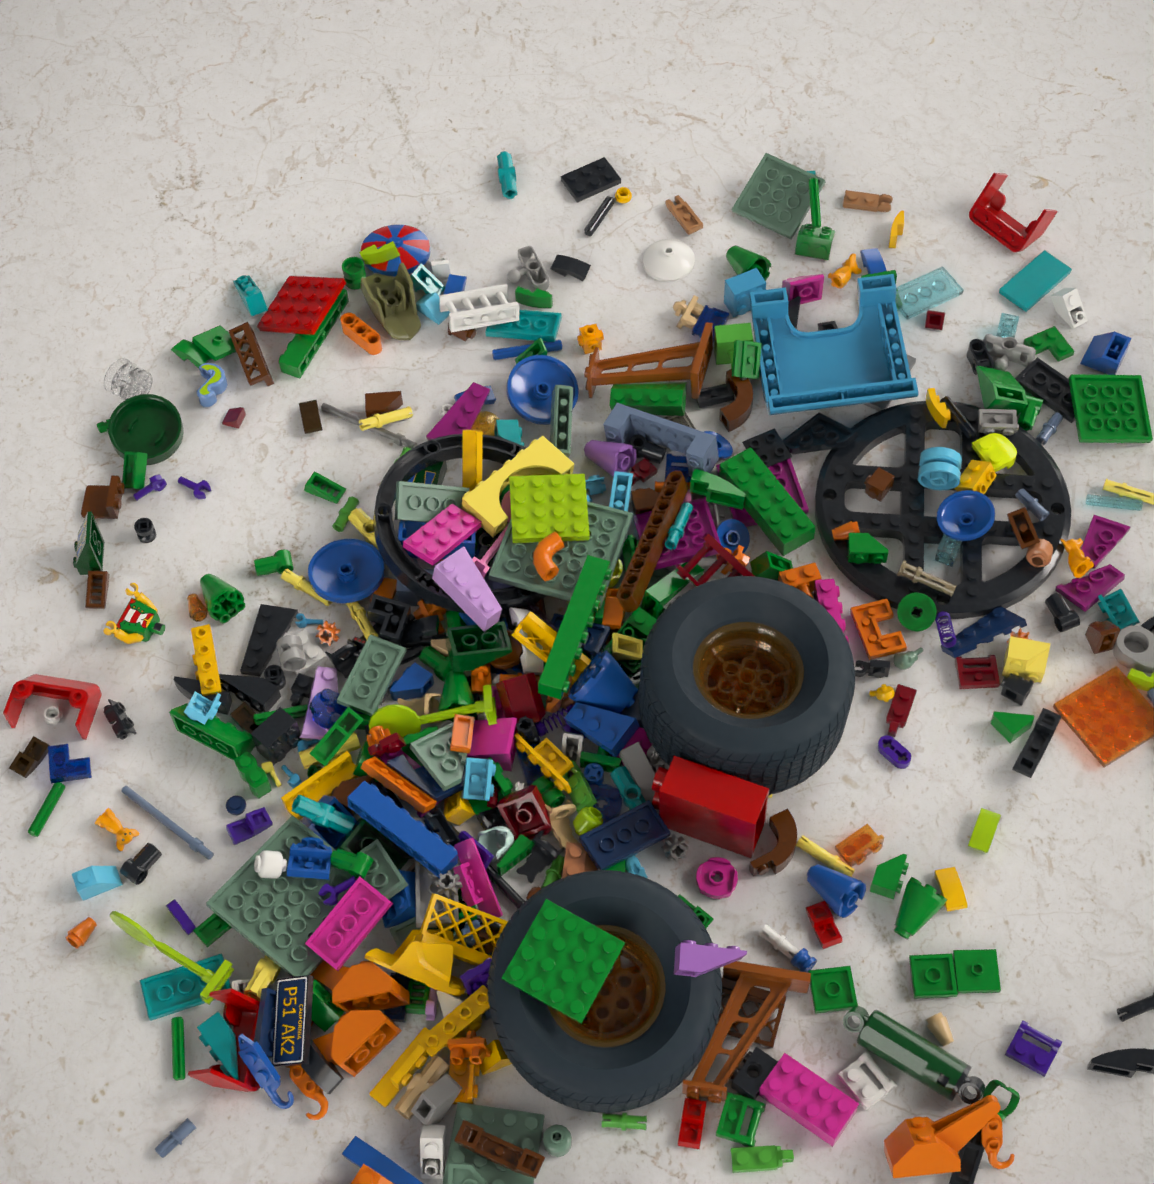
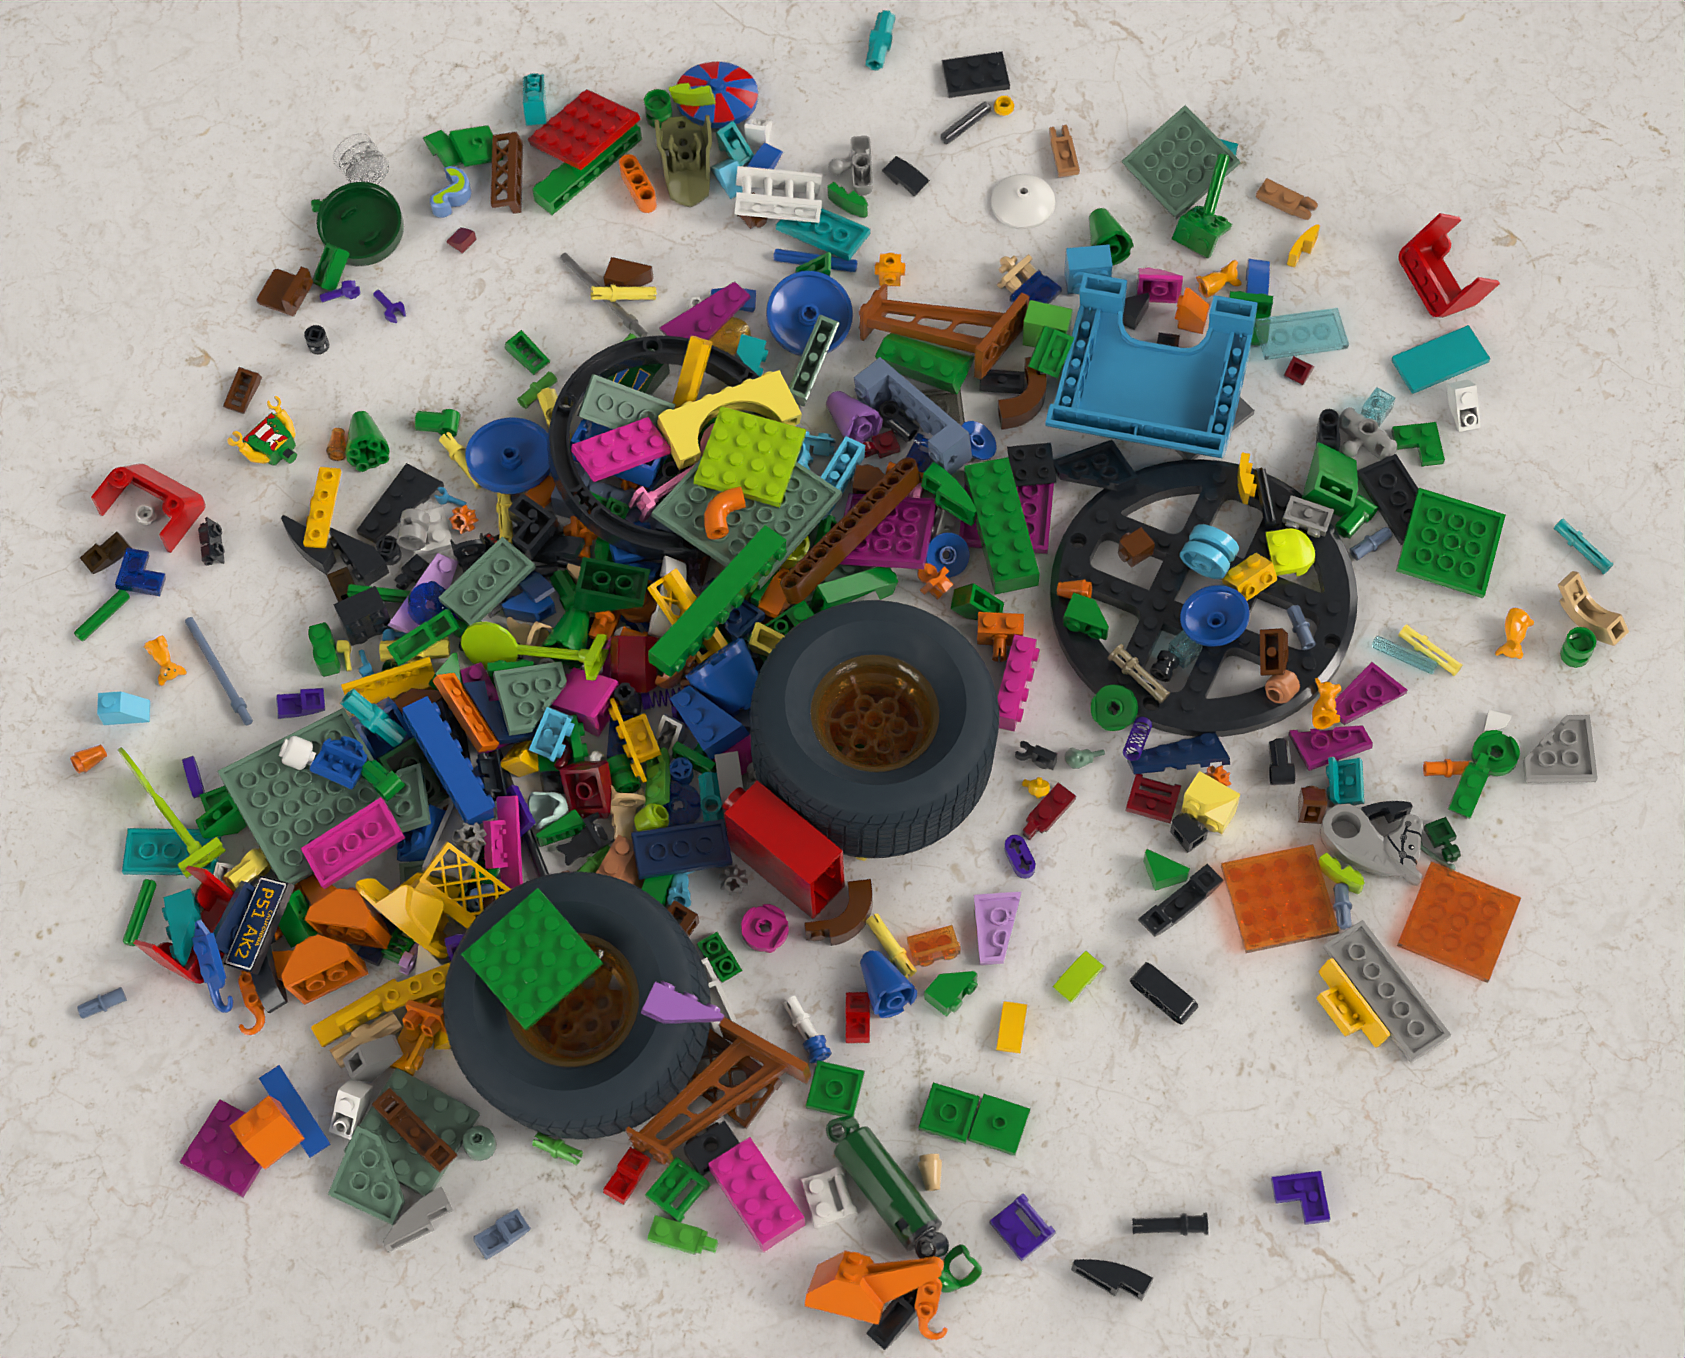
camera: 20 degrees right, 5 degrees up
(89, 547) = (250, 341): dark green slope -> none
(137, 868) = (169, 709): black piece -> none
(201, 708) = (294, 559): medium azure bracket -> none
(214, 734) = (299, 586): green slope -> none
(222, 943) = (221, 820): none -> green slope
(236, 805) = (295, 676): dark blue plate -> none
(310, 416) = (544, 264): dark brown slope -> none
(335, 891) = (354, 803): dark purple bar -> none
(376, 734) = (467, 654): orange gear -> none
(389, 744) = (474, 665): dark red plate -> none
(413, 666) = (536, 587): none -> dark blue slope
(462, 733) = (554, 679): orange tile -> none
(467, 587) = (619, 515): lavender wedge -> none
(677, 530) = (882, 528): teal pin -> none
(723, 557) = (918, 575): dark red fence -> none
(837, 301) = (1191, 312): none -> orange slope
(875, 643) = (1054, 729): orange plate -> none
(899, 812) = (994, 924): none -> lavender wing
(917, 908) = (962, 1034): green cone -> none
(939, 566) = (1164, 666): none -> black wheel
(1057, 820) = (1164, 993): none -> black beam
(1106, 352) = (1480, 474): blue slope -> none

